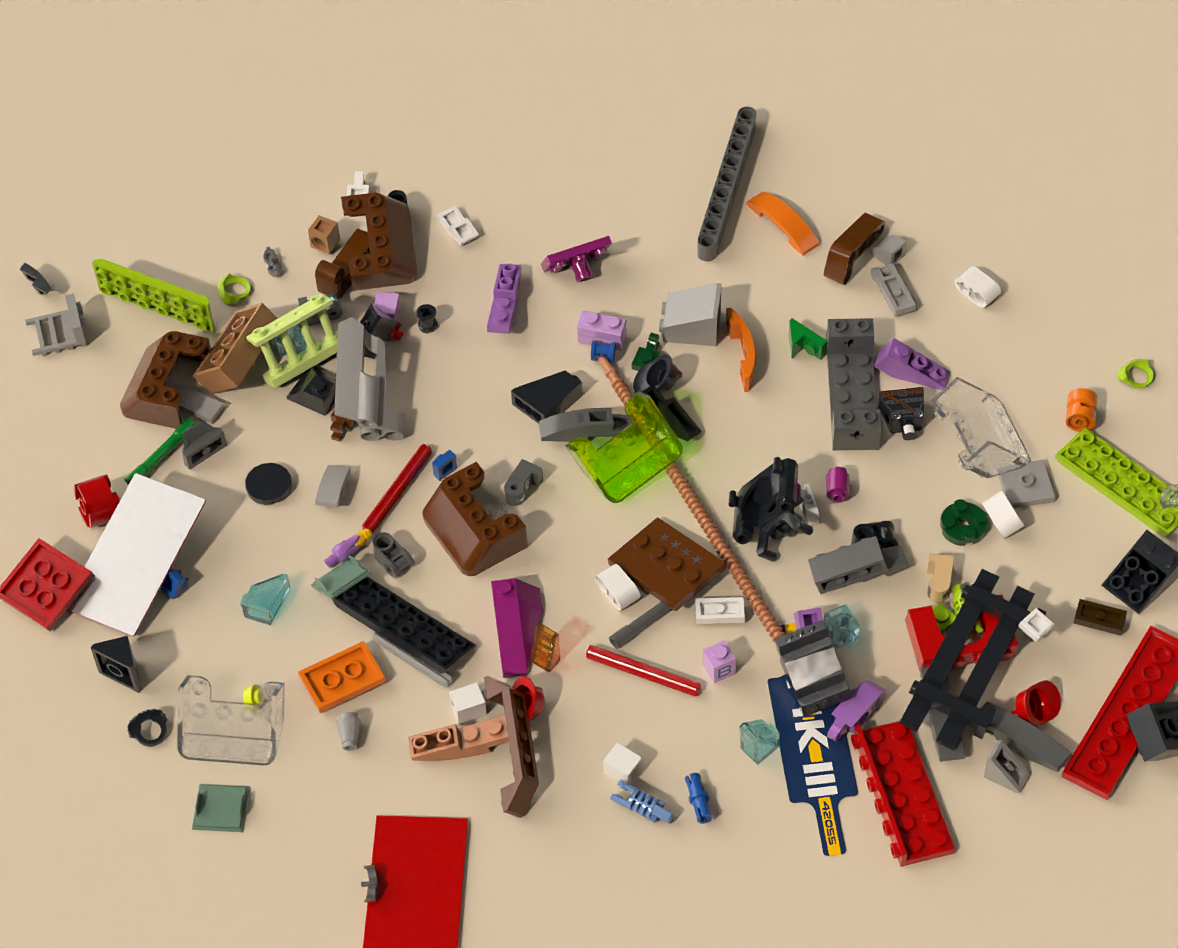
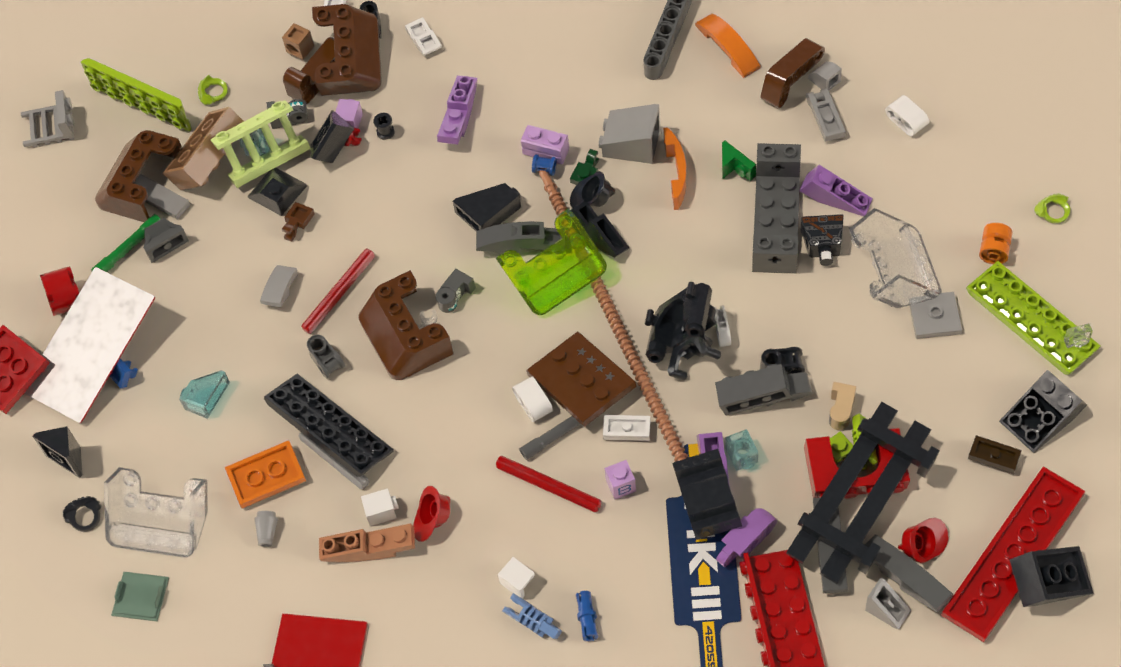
camera: 10 degrees right, 5 degrees up
(39, 282) = (37, 77): black slope -> none
(251, 694) = (177, 487): neon yellow plate -> none
(268, 483) = (221, 280): black tile -> none
(271, 260) = (248, 61): flat silver piece -> none
(340, 578) = (274, 377): sand green piece -> none
(348, 547) = (285, 347): medium lavender piece -> none
(360, 394) = (311, 200): light grey panel -> none
(444, 465) = (384, 270): blue plate -> none
(516, 615) = (434, 425): magenta wedge -> none
(518, 794) = (416, 602): reddish brown slope -> none
(545, 648) = (456, 457): clear orange slope -> none
(577, 258) = (529, 73): magenta plate -> none
(758, 739) = (649, 560): clear light blue slope -> none
(837, 484) = (752, 307): magenta brick -> none
(968, 512) = (870, 340): dark green plate -> none
(1003, 514) = (909, 345): white beam -> none
(1036, 625) = (928, 464): white tile -> none

